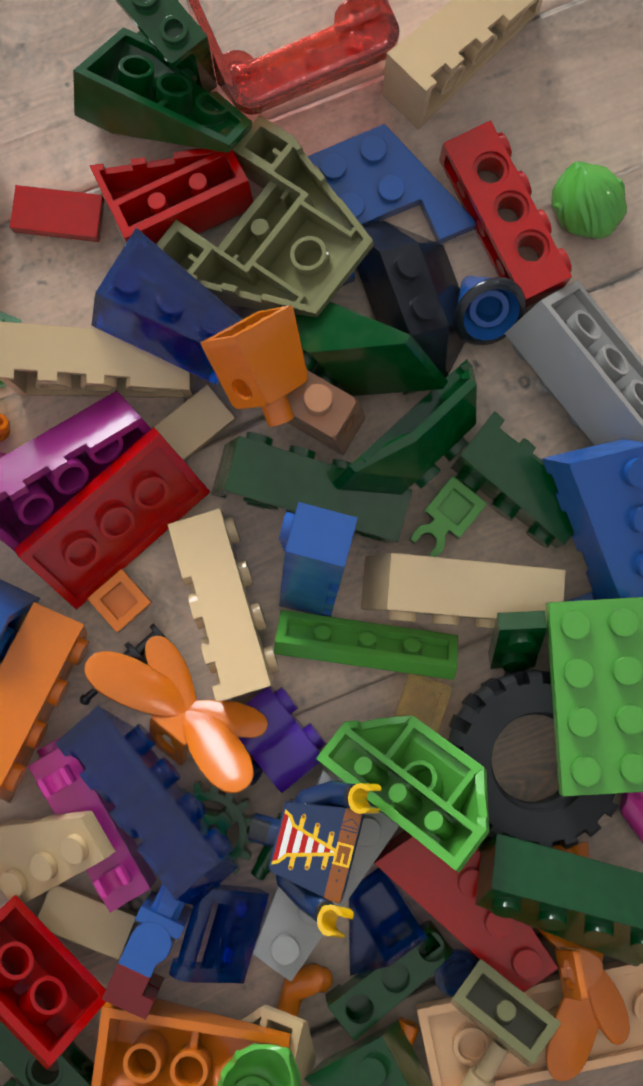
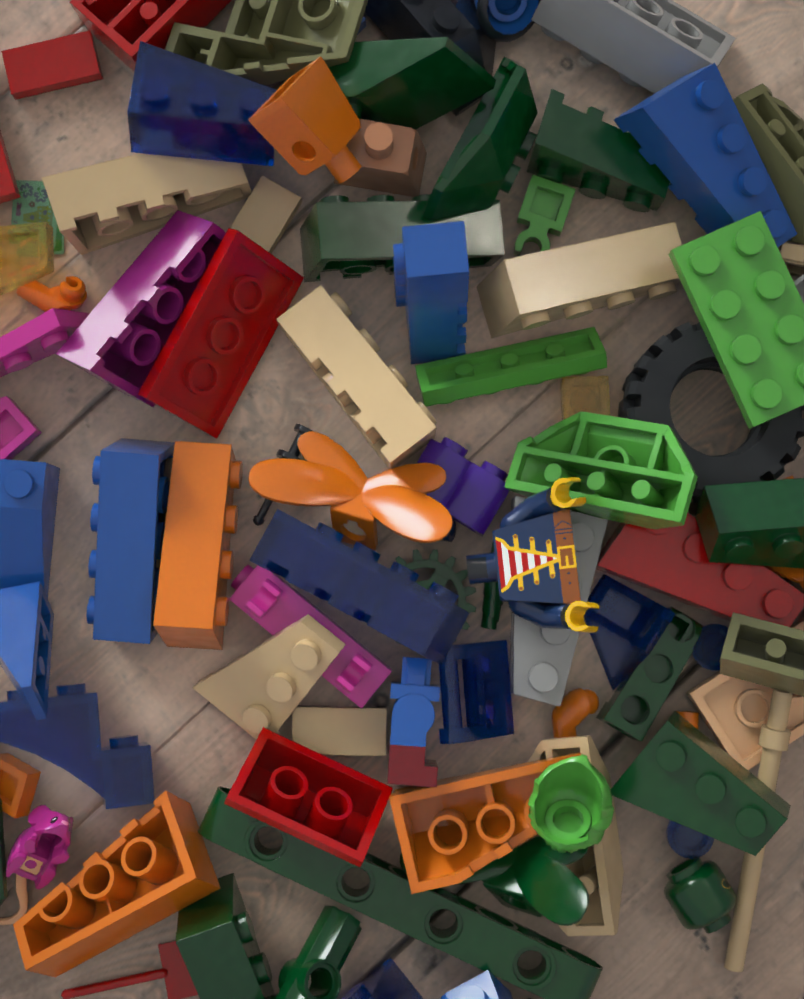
camera: 20 degrees left, 0 degrees up
(120, 600) = (256, 413): orange plate -> none
(517, 640) = (653, 304): dark green plate -> none

